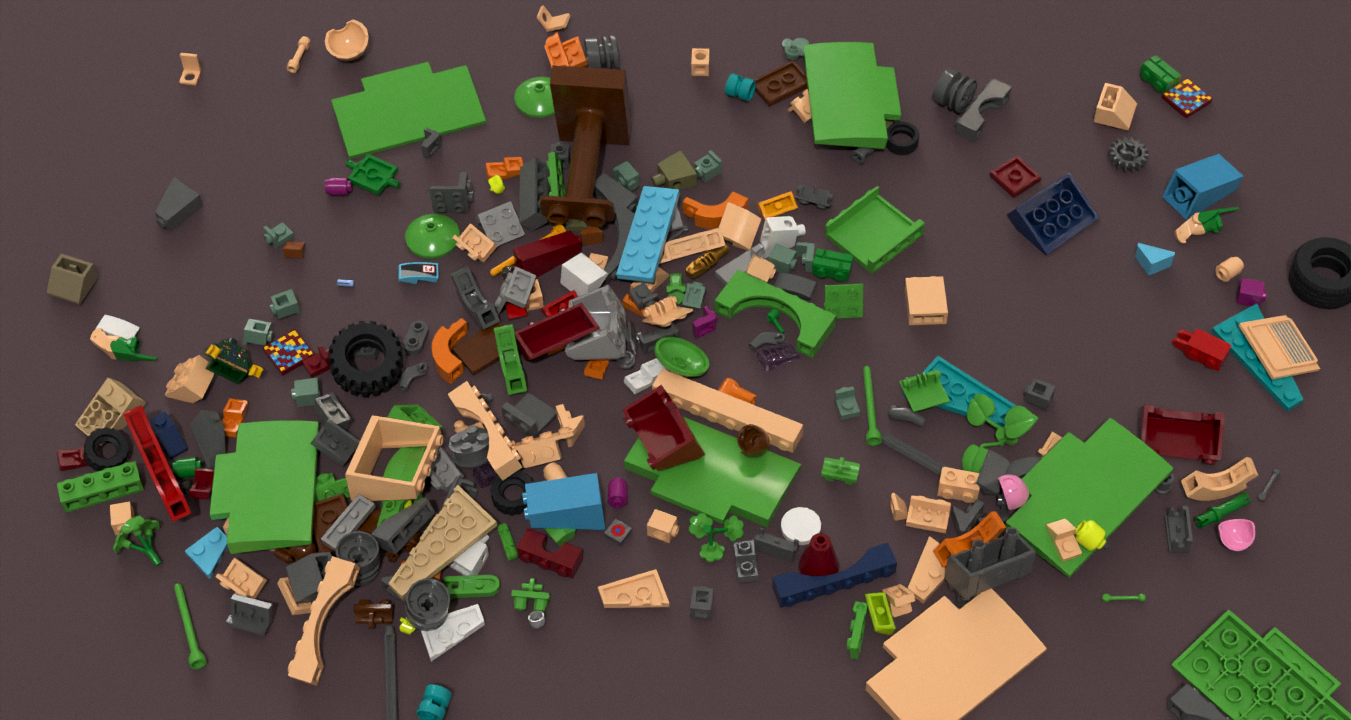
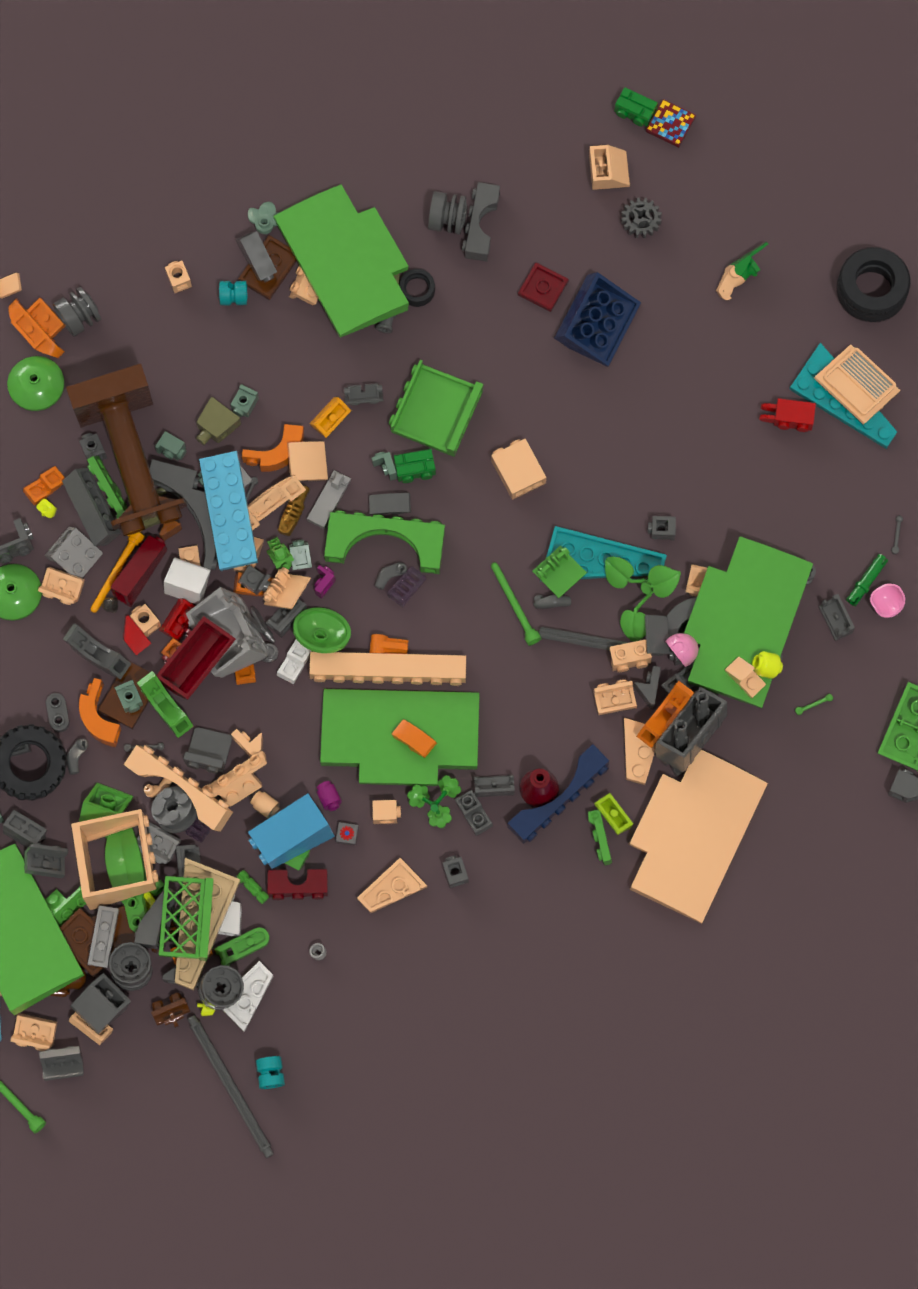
camera: 25 degrees left, 20 degrees up
(338, 579) = (139, 1083): light nougat arch -> none
(418, 271) = (22, 640): slope -> none
(443, 539) = (203, 914): none -> bright green fence
(483, 343) = (129, 705): none -> sand green brick
(506, 506) = (233, 851): black tyre -> none
(515, 289) = (130, 626): light grey bracket -> none
(540, 598) = (294, 936): bright green hips -> none
(662, 430) = (344, 719): dark red windscreen -> none
(720, 472) = (414, 738): none -> orange slope
(753, 441) = (426, 694): reddish brown helmet -> none
(761, 268) = (350, 500): light nougat brick -> none
(772, 317) = (383, 547): green hand -> none
(773, 64) = (257, 256): none -> dark grey slope
(780, 231) = (351, 452): white torso -> none
(783, 259) = (365, 479): sand green brick -> none
(800, 524) = (506, 756): white tile -> none
(840, 470) = (518, 686): bright green hips -> none
(844, 300) = (444, 504): bright green hinge -> none
(846, 403) = (492, 612): sand green bracket -> none
(898, 507) = (585, 700): light nougat slope -> none
(899, 599) = (623, 791): light nougat slope -> none
(1153, 258) = (708, 332): medium azure slope -> none
(1183, 433) = (804, 516): dark red windscreen -> none
(1201, 185) = (724, 227): dark azure slope -> none
(1219, 485) = (856, 555): light nougat arch -> none
(1229, 268) = (782, 314): light nougat brick -> none
(1251, 292) = (811, 333): magenta brick -> none

